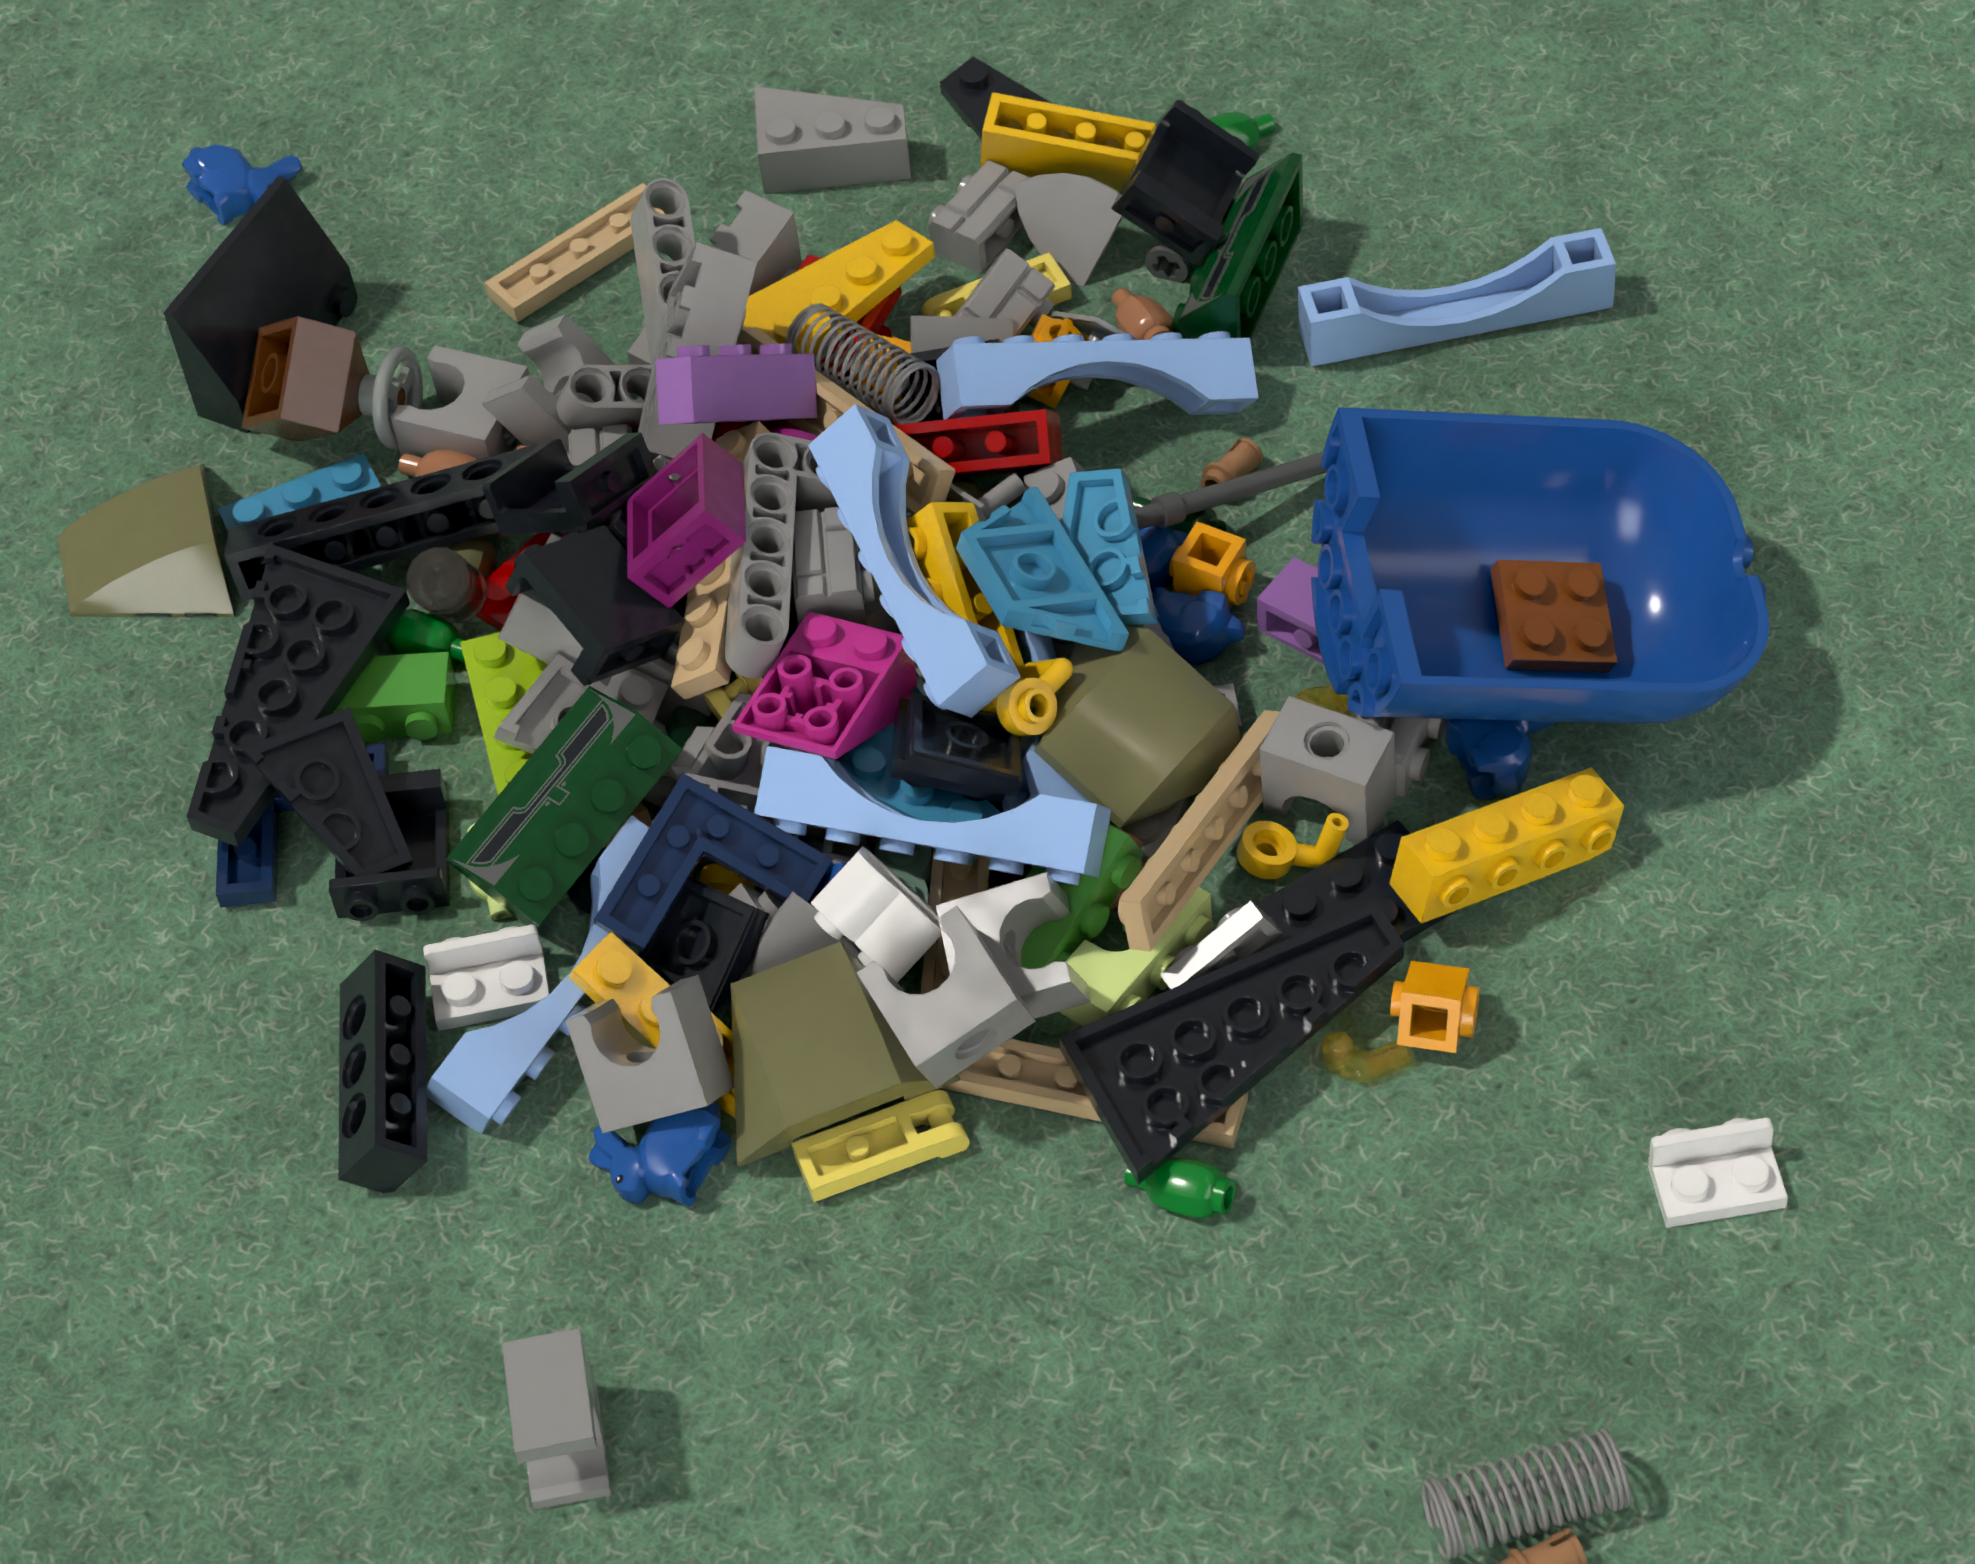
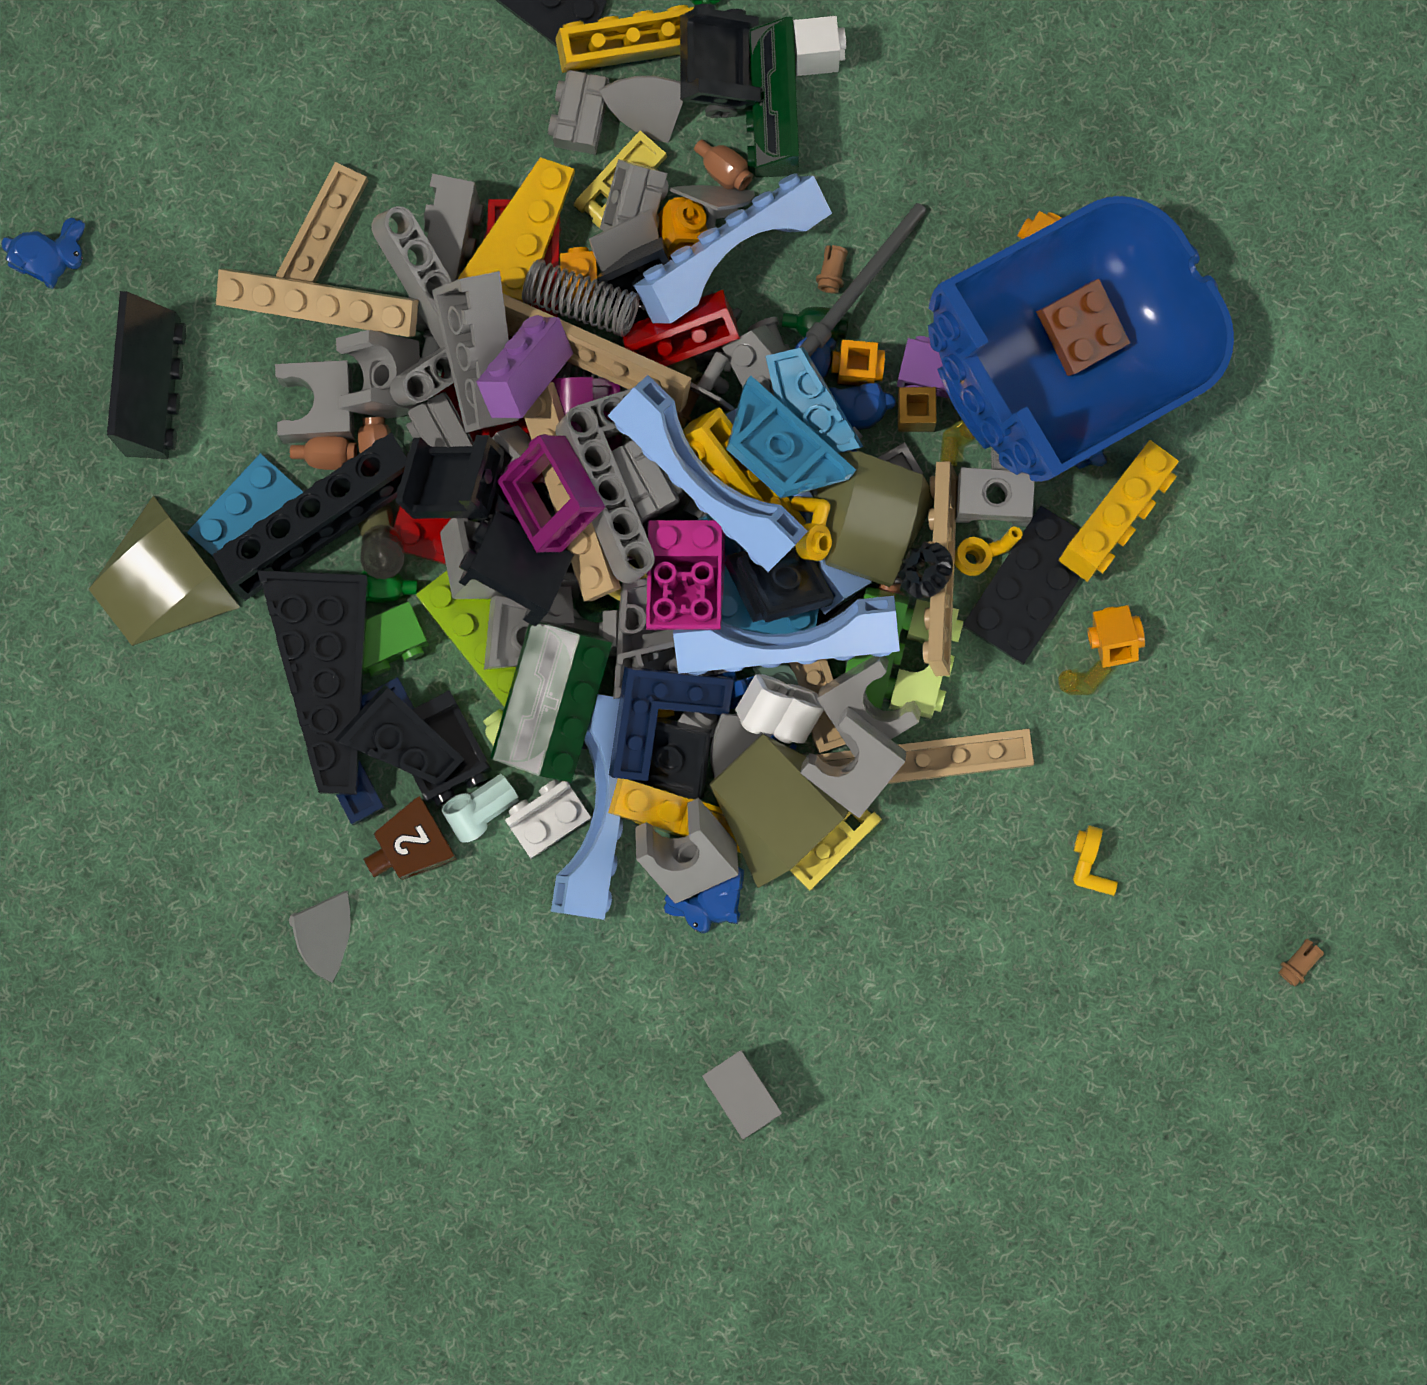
camera: 25 degrees left, 30 degrees up
(92, 1011) = (323, 934): none -> light grey shield
(281, 945) = (410, 843): none -> reddish brown torso
(316, 382) = (210, 426): reddish brown piece -> none
(382, 1073) = (522, 910): black brick -> none
(398, 929) = (471, 812): none -> light aqua piece
(527, 297) = (317, 302): none -> tan plate
(828, 140) = (444, 82): light grey wedge -> none
(1176, 802) = (934, 577): none -> black gear
(1188, 1188) = (1016, 803): green plant -> none
(1196, 1049) = (995, 718): black wing -> none
(1236, 937) = (989, 634): light grey plate -> none
(1266, 1276) = (1087, 845): none -> yellow plate
(1267, 645) = (916, 409): none -> pearl gold brick
(1326, 216) = (818, 45): none -> white brick
(1441, 1510) = (1327, 909): light grey piece -> none
(1555, 281) = (964, 59): light blue arch -> none
(1716, 1172) = (1309, 686): white bracket -> none

